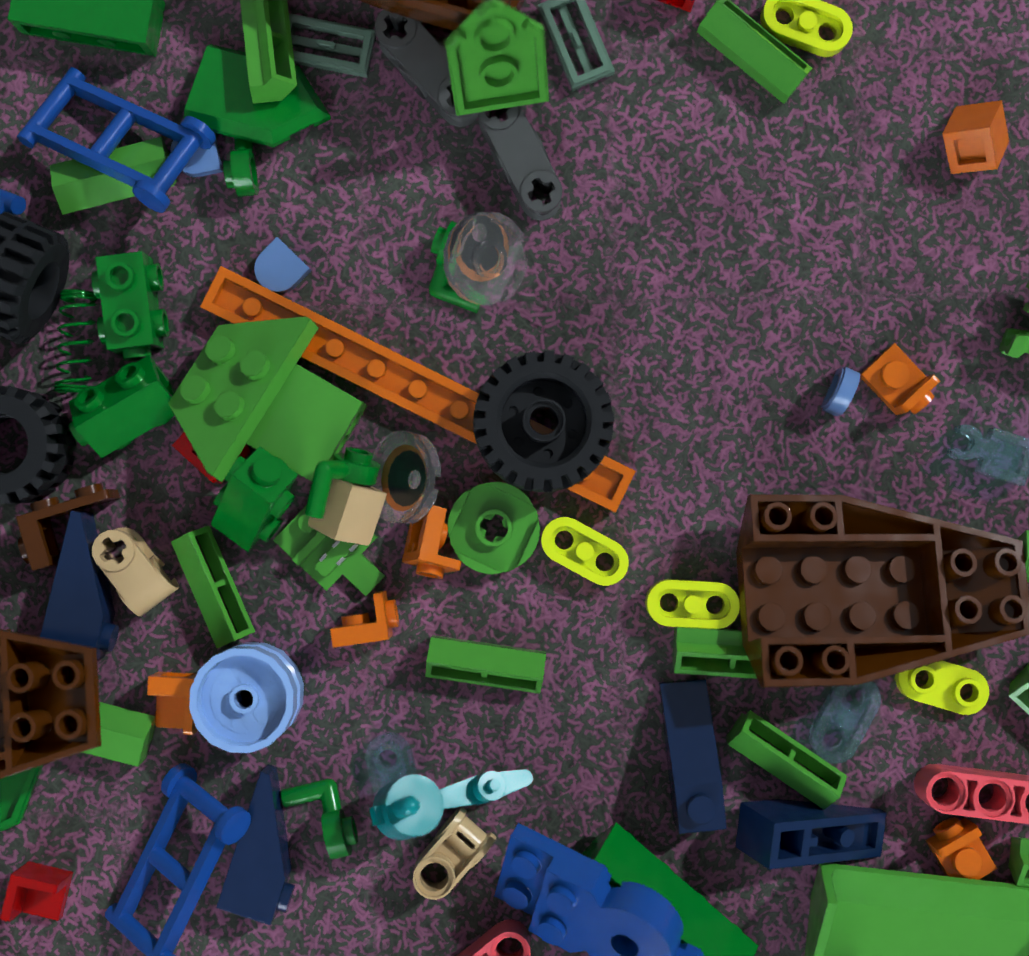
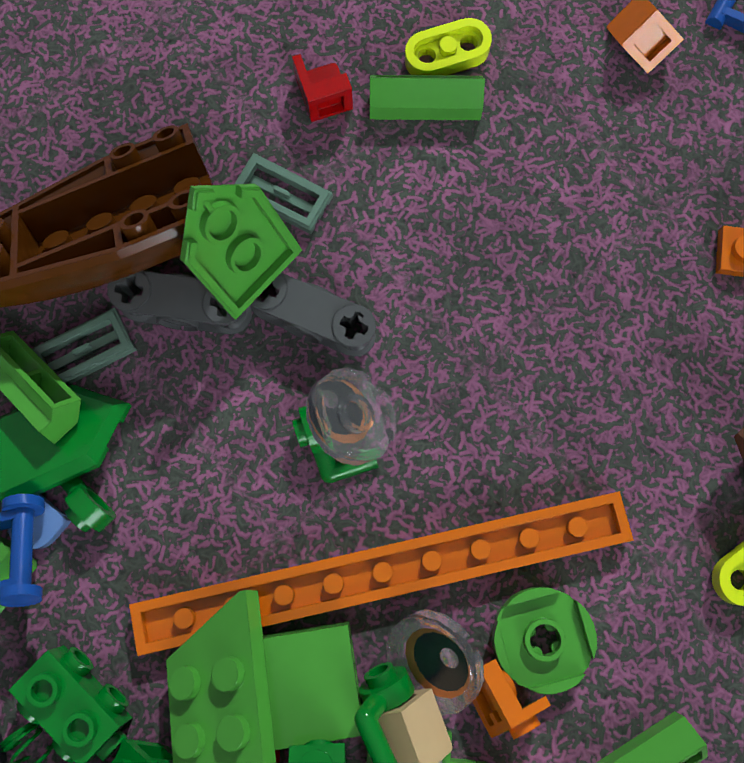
camera: 35 degrees left, 10 degrees down
(279, 268) = (182, 564): medium blue tile -> none
(551, 385) = (554, 505): black wheel -> none
(584, 550) = (633, 596): neon yellow plate -> none
(841, 391) = (719, 293): medium blue tile -> none

